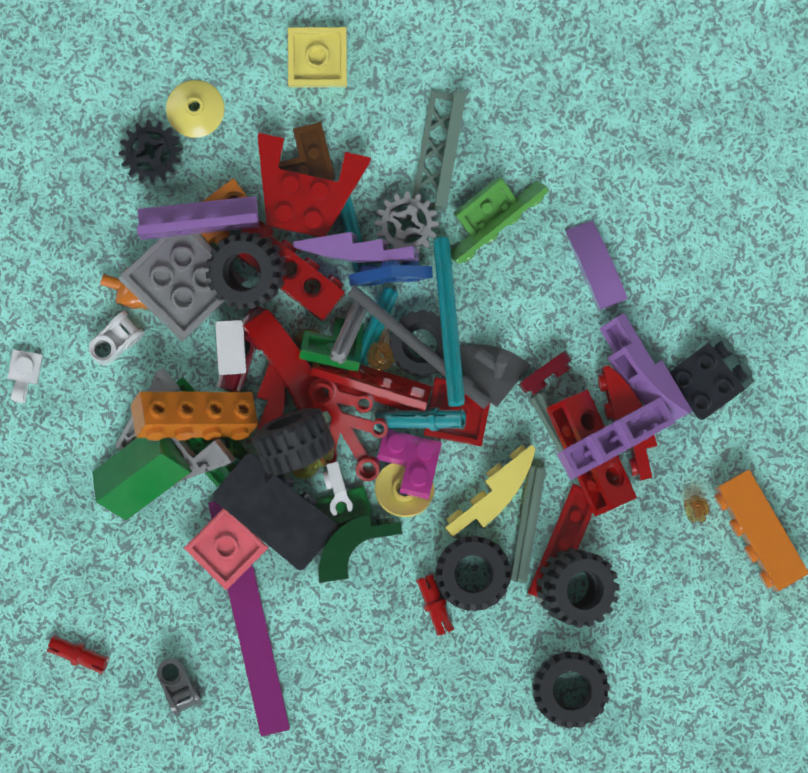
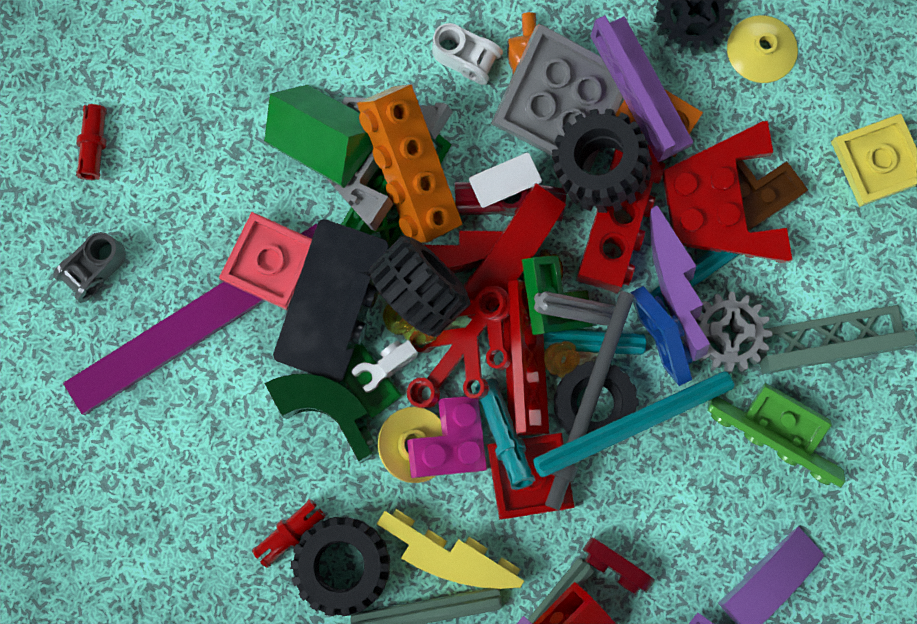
camera: 75 degrees right, 5 degrees down
(492, 369) = (596, 499): dark grey shield -> none

